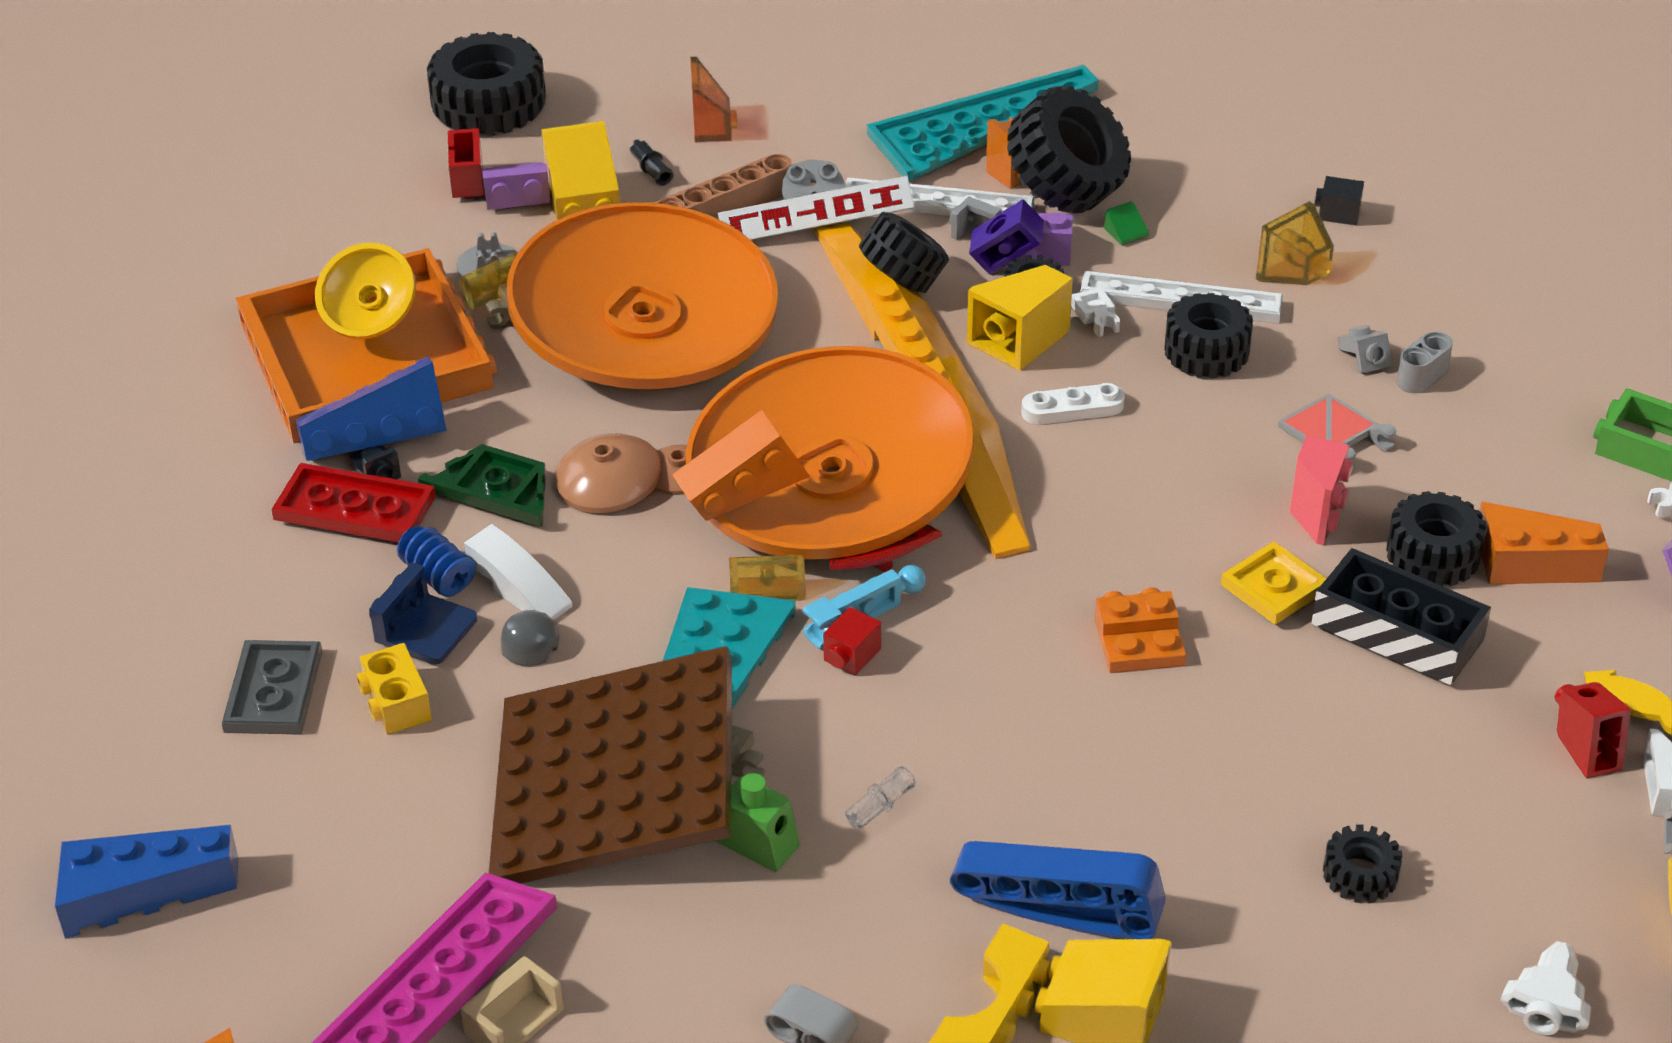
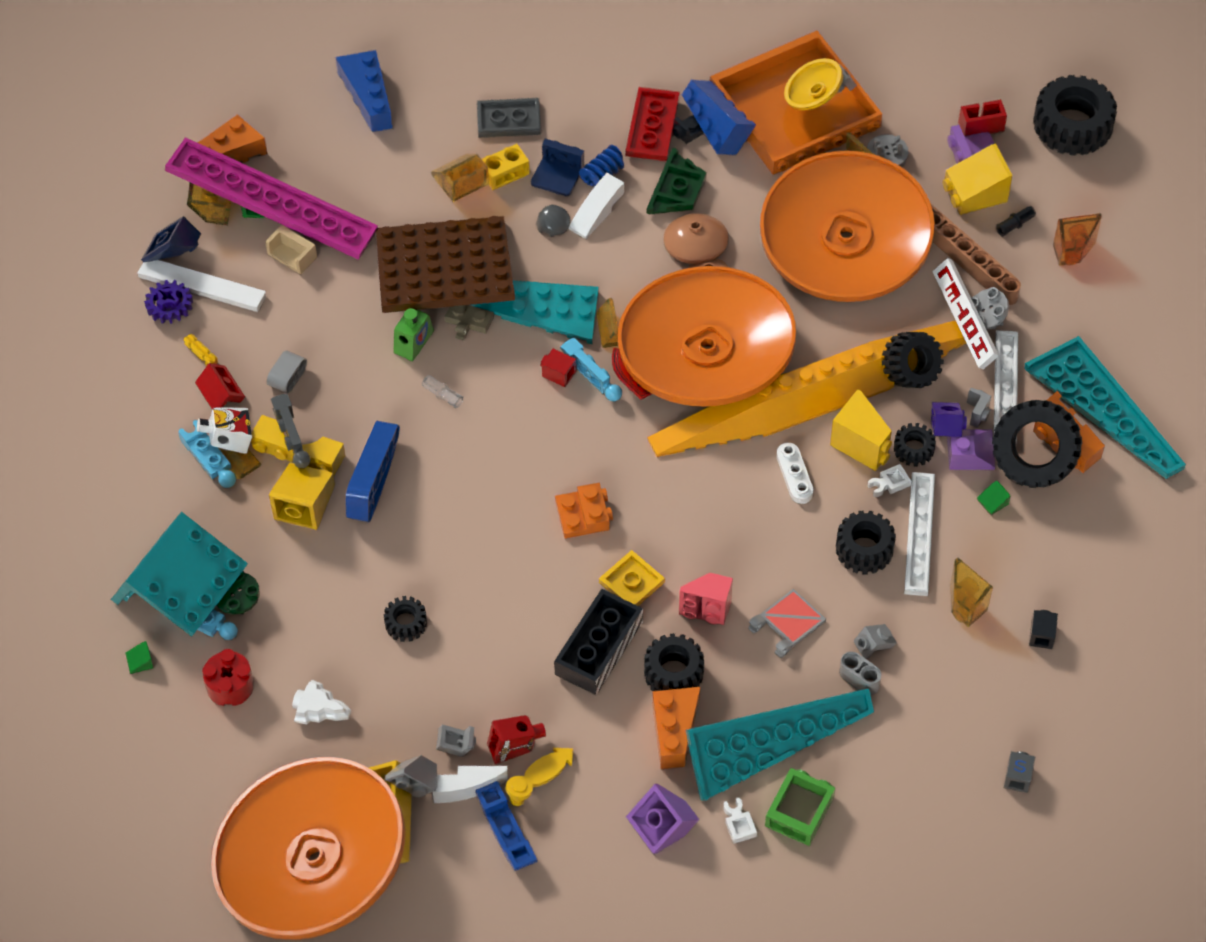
camera: 85 degrees right, 15 degrees up
(398, 744) = (462, 176): none -> clear yellow slope
(740, 469) = (669, 288): orange wedge -> none
(980, 987) = (284, 413): none -> dark grey plate
(1550, 459) = (748, 744): none -> teal wing
(1561, 240) = (1019, 771): none -> dark grey brick
(1597, 799) = (455, 740): none -> light grey bracket

